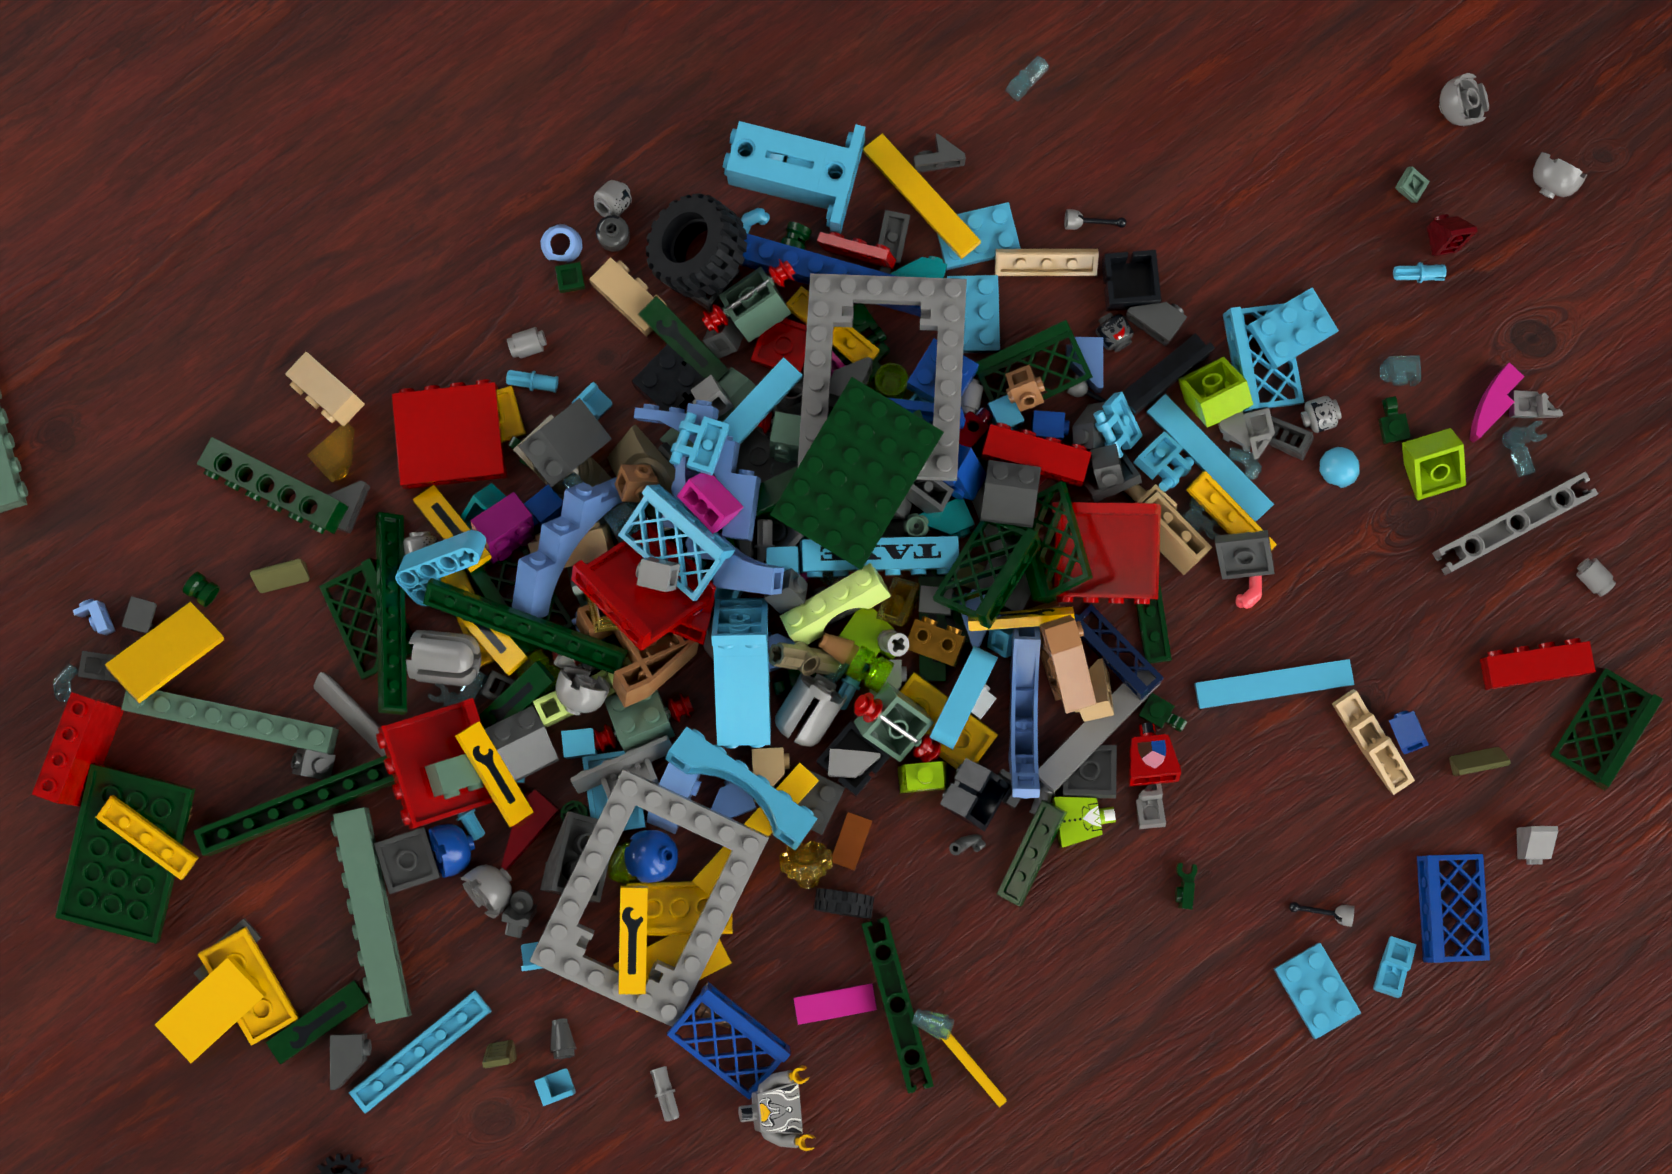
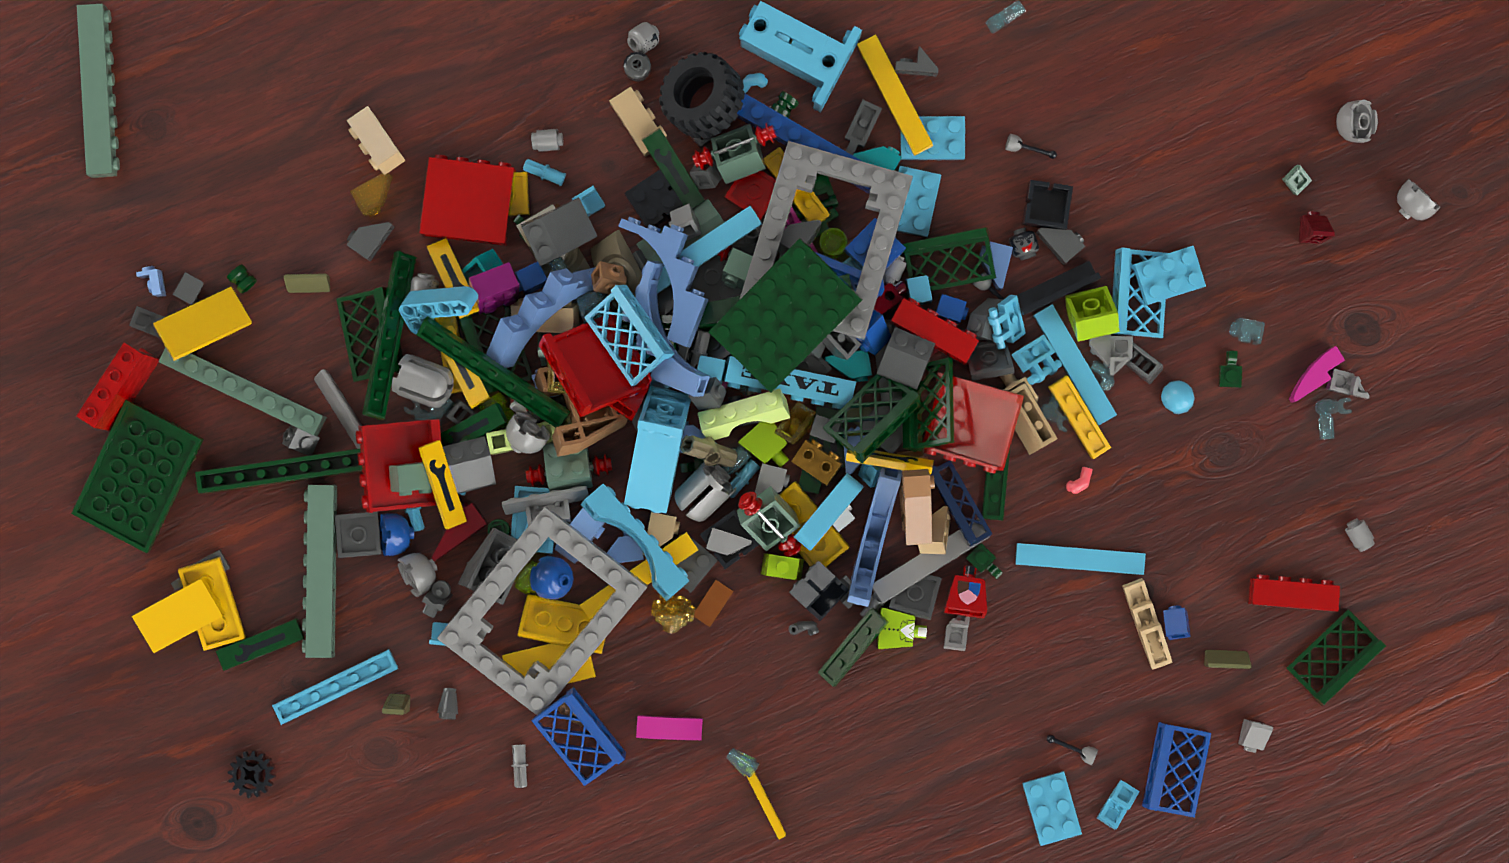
camera: 10 degrees right, 5 degrees up
(62, 683) = (115, 328): clear light blue arm -> none
(147, 837) = (157, 468): yellow tile -> none
(218, 456) = (279, 173): dark green brick -> none
(347, 1055) = (277, 676): dark grey slope -> none
(555, 1086) = (434, 739): medium azure panel -> none
(570, 277) = (594, 94): dark green plate -> none
(575, 243) = (605, 63): light blue piece -> none
(578, 743) = (514, 474): medium azure panel -> none
(633, 939) = (522, 641): yellow tile -> none
(657, 574) = (608, 358): light grey brick -> none
(706, 447) = (671, 265): medium azure plate -> none
(709, 501) = (663, 309): dark pink brick -> none
(778, 1110) = (605, 800): light grey torso -> none
(839, 648) = (739, 449): medium nougat cone -> none
(843, 903) = (694, 651): black tyre -> none
(856, 249) = (831, 127): red plate -> none
(877, 675) = (765, 477): clear neon green wheel -> none
(885, 642) = (786, 460): light grey bush -> none
(891, 985) = (718, 724): dark green piece -> none
(909, 527) = (818, 364): sand green plate -> none
(1025, 393) = (938, 275): medium nougat brick -> none
(1046, 262) = (983, 173): tan tile -> none
(1107, 466) = (989, 354): dark grey brick -> none
(1185, 893) = (966, 708): dark green plate -> none
(1244, 554) = (1081, 451): dark grey hinge -> none
(1321, 414) = (1173, 351): light grey head -> none
(1420, 272) = (1284, 254): medium azure axle -> none
(1435, 463) = (1254, 412): lime slope -> none
(1529, 516) = (1320, 472): light grey piece -> none

